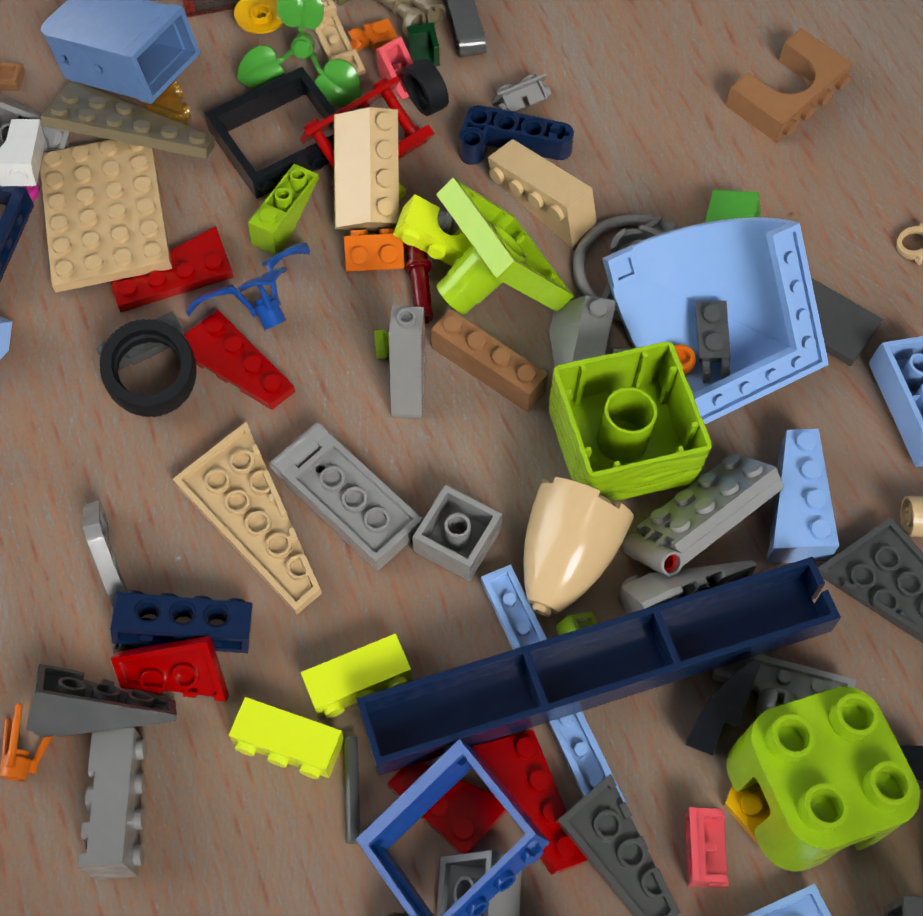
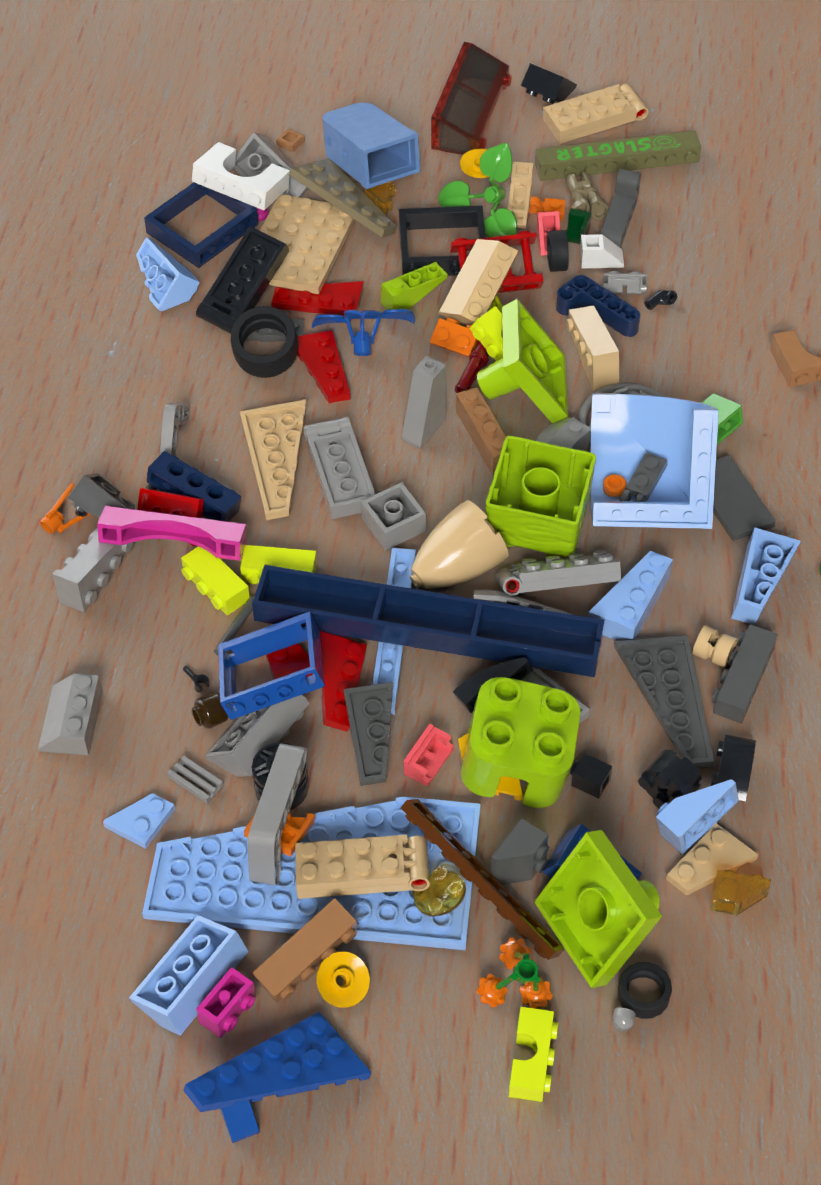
camera: 30 degrees right, 10 degrees down
(69, 296) = (242, 279): none -> black hinge
(131, 733) = (128, 525): none -> dark pink arch
(347, 897) = (196, 679): none -> black hand
(471, 69) = (600, 252): none -> white slope
(572, 94) = (661, 297): none -> black arm

